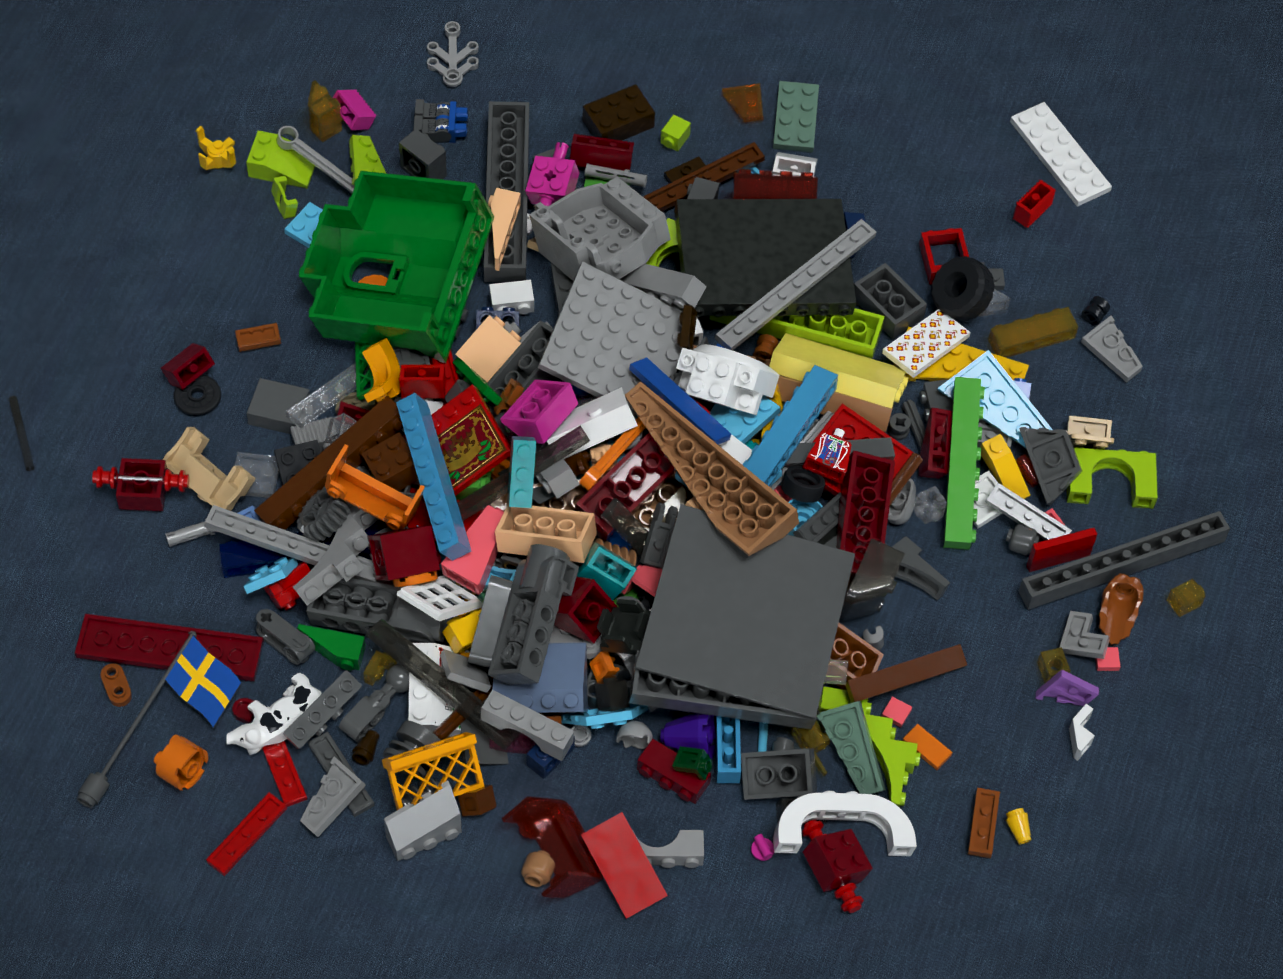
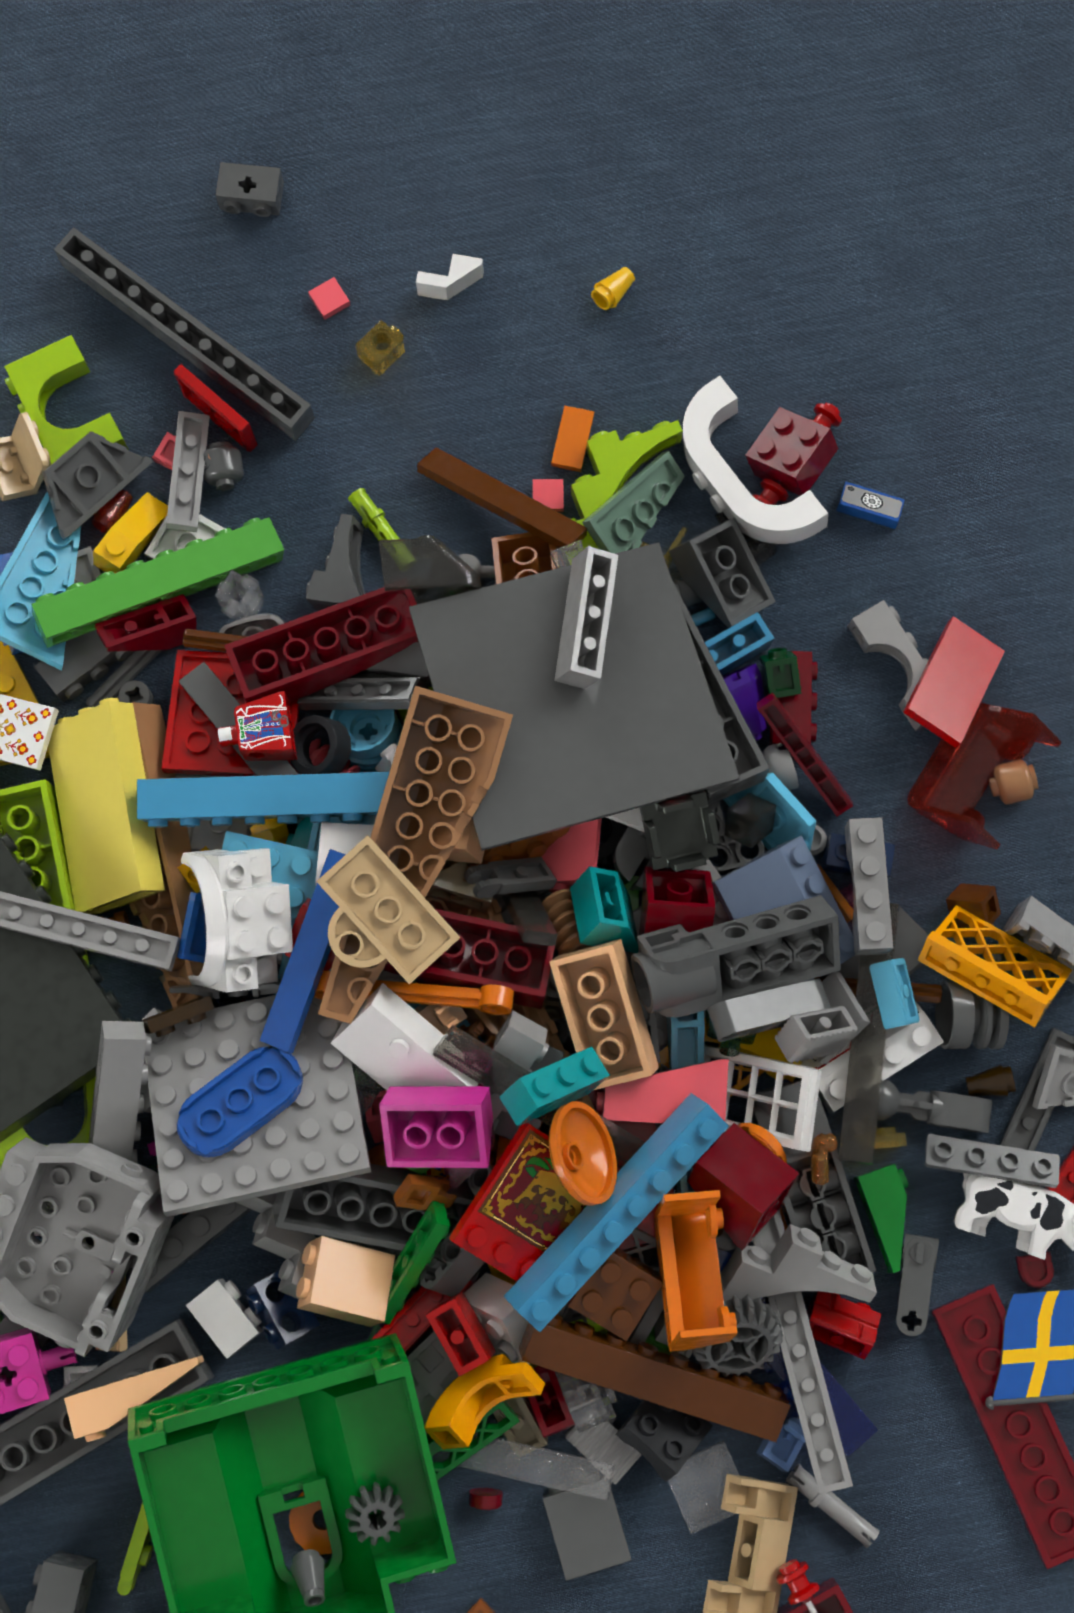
camera: 115 degrees left, 20 degrees up
(266, 576) = (854, 1354): medium azure plate -> none
(329, 368) = (485, 1498): none -> dark red tile
(351, 258) = (309, 1576): none -> dark grey cone
(360, 299) = (372, 1501): none -> dark grey gear
(389, 607) = (819, 1160): none -> clear orange arm
(454, 706) = (894, 993): none -> medium azure slope
(460, 639) = (815, 1034): none -> light grey brick
(468, 475) = (583, 1153): none -> orange dish
(603, 666) = (727, 850): orange tile -> none
(618, 328) = (239, 1101): none -> blue tile
(632, 748) = (804, 754): none -> dark red piece
(674, 432) = (383, 914): none -> tan plate
(762, 848) = (821, 548): dark pink plate -> none
(775, 897) = (870, 505): none -> slope
(786, 633) = (586, 618): none -> light grey brick
(929, 606) = (372, 516): none -> lime pin
(983, 822) = (633, 327): dark orange plate -> none
(1068, 689) = (403, 315): medium lavender wing -> none
(1079, 641) = (327, 339): light grey plate -> none
(1120, 607) = (255, 310): dark orange hair -> none
(1186, 597) = (192, 245): clear yellow brick -> none
(1205, 659) = (249, 189): none -> dark grey brick

